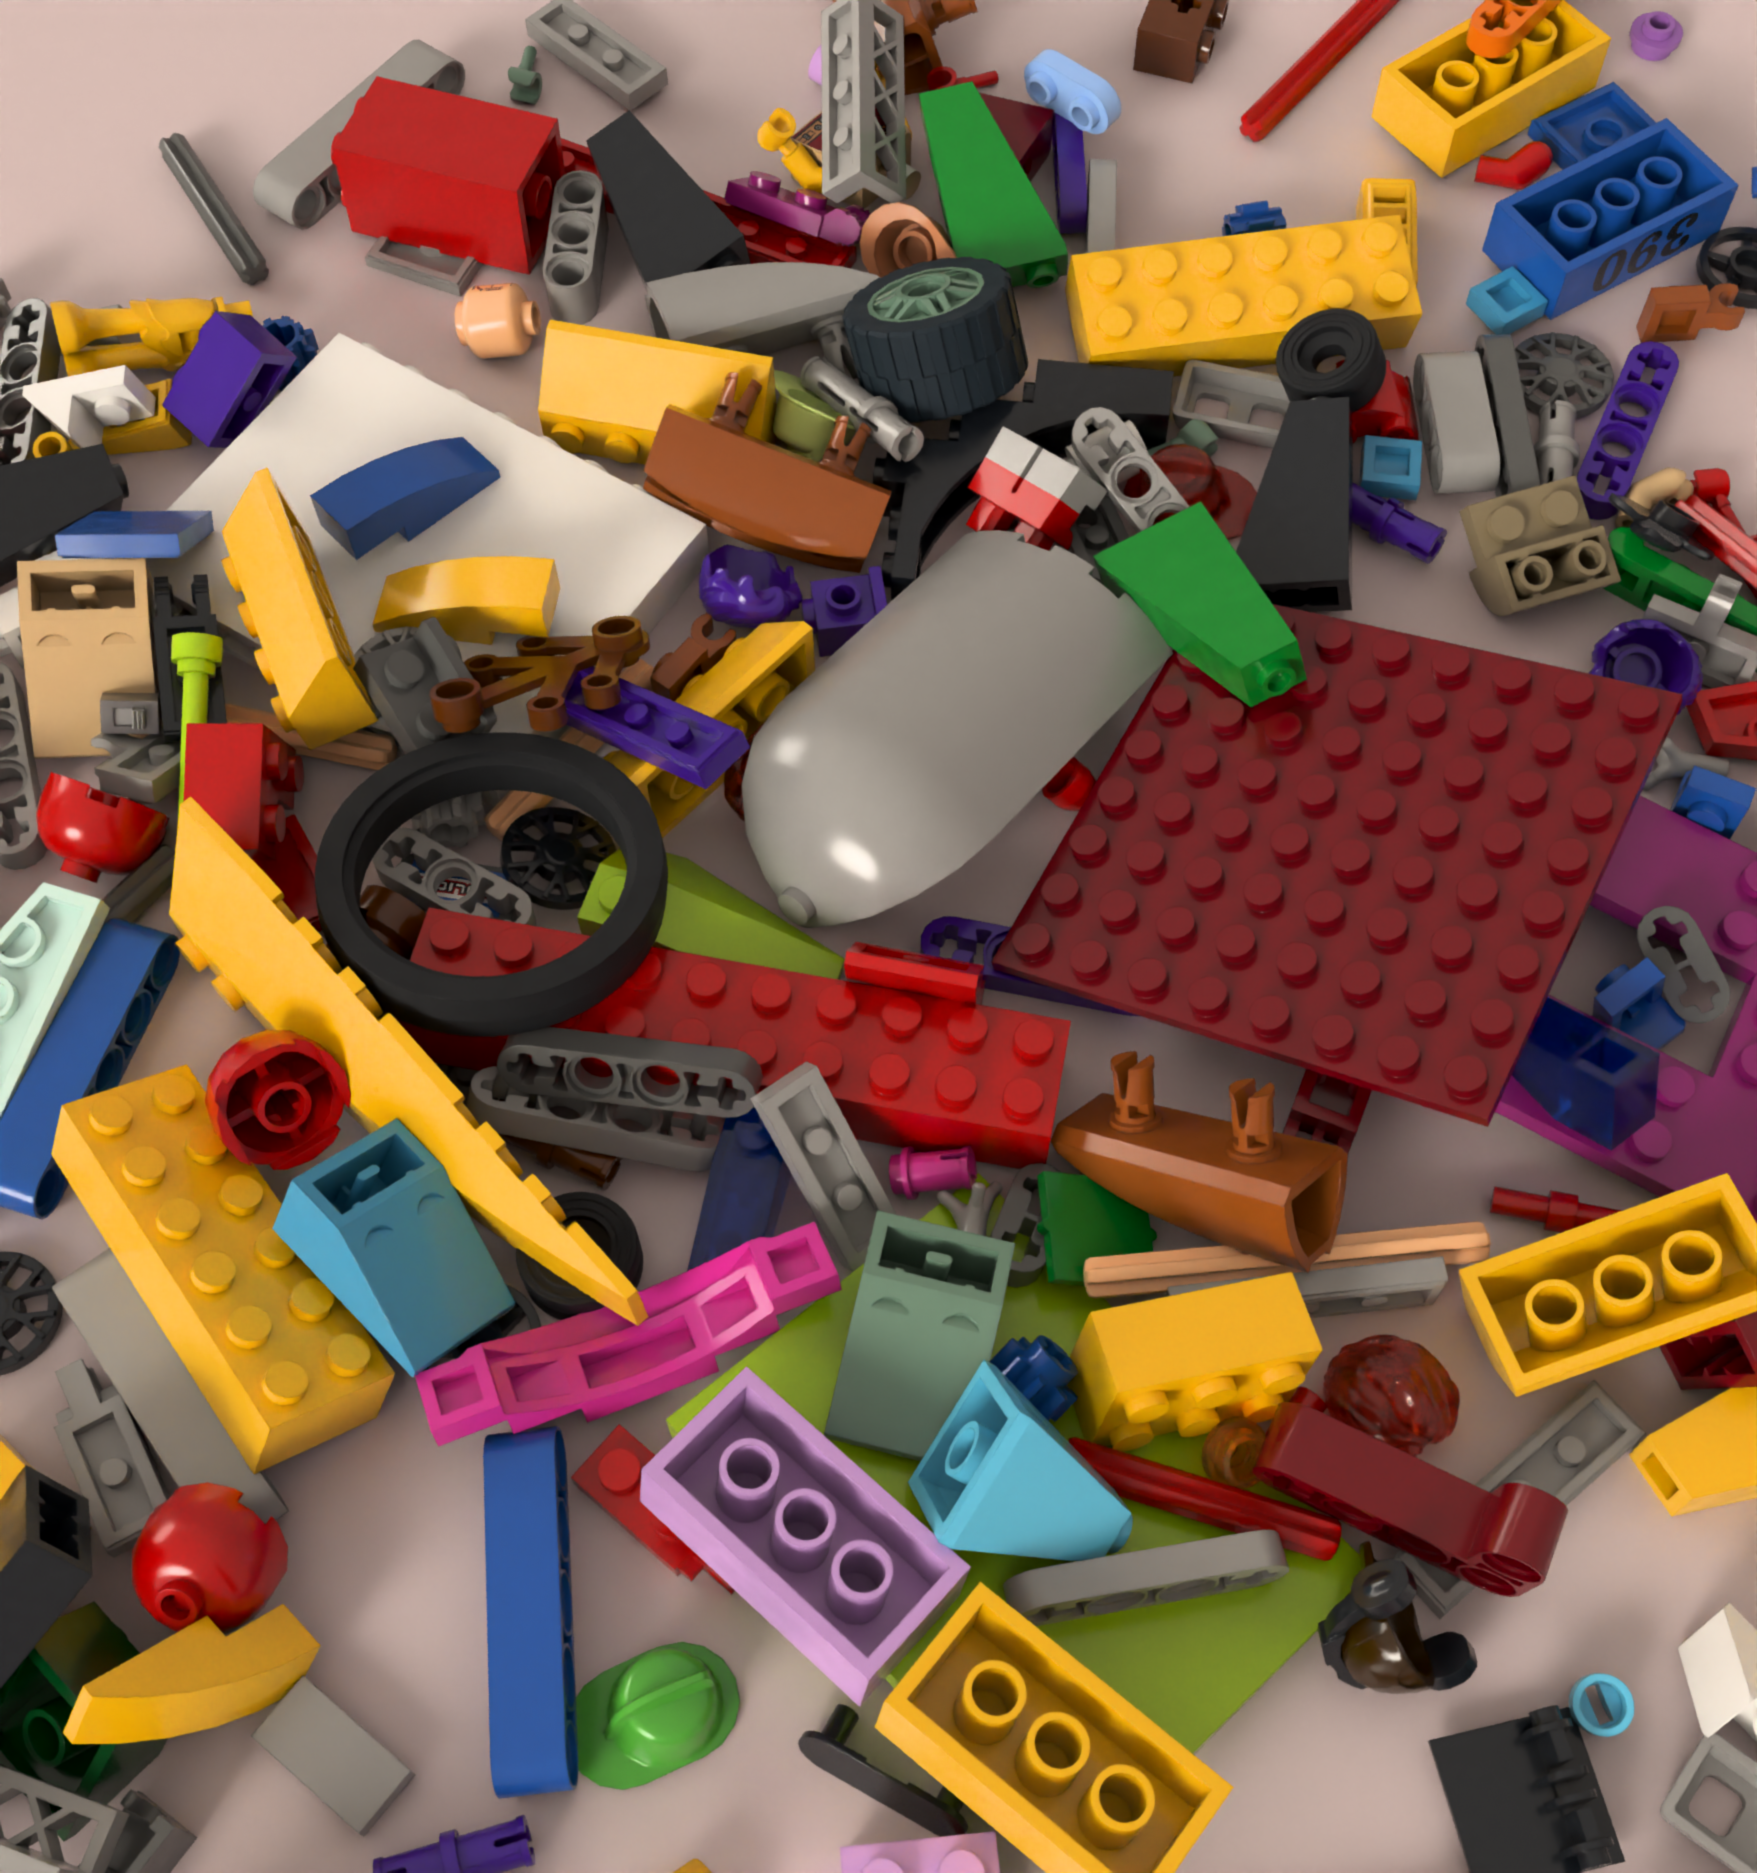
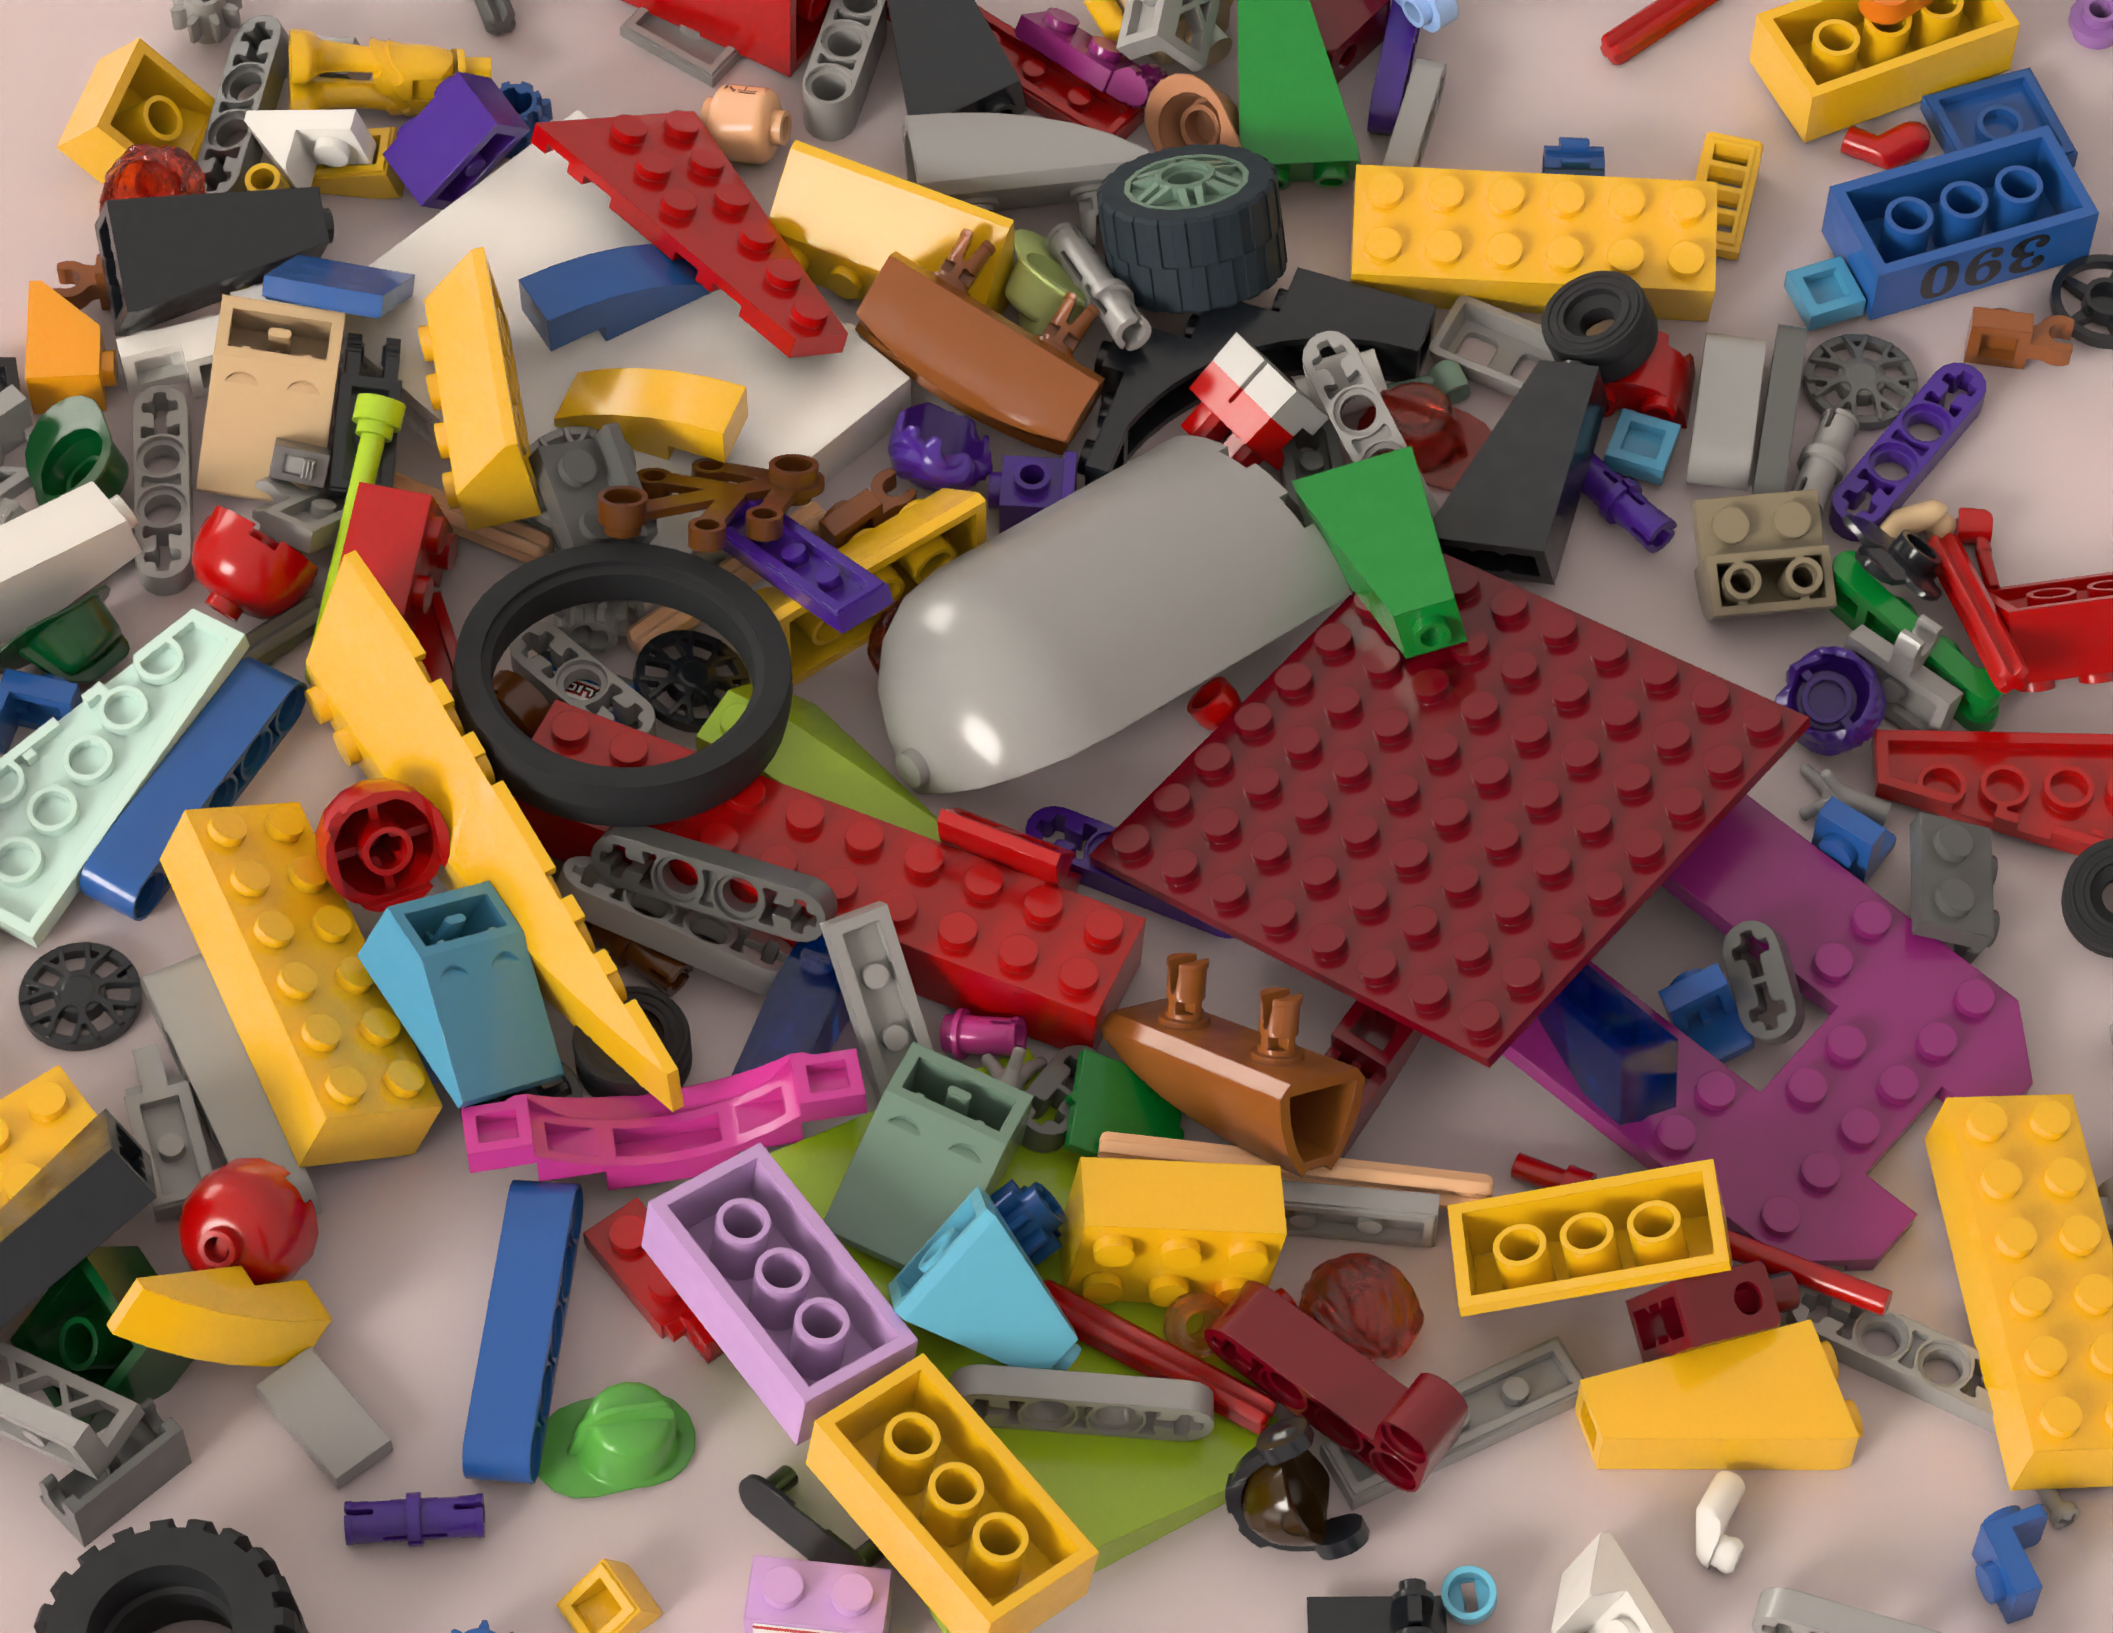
camera: 10 degrees right, 5 degrees down
(463, 398) = (692, 204): none -> red wing

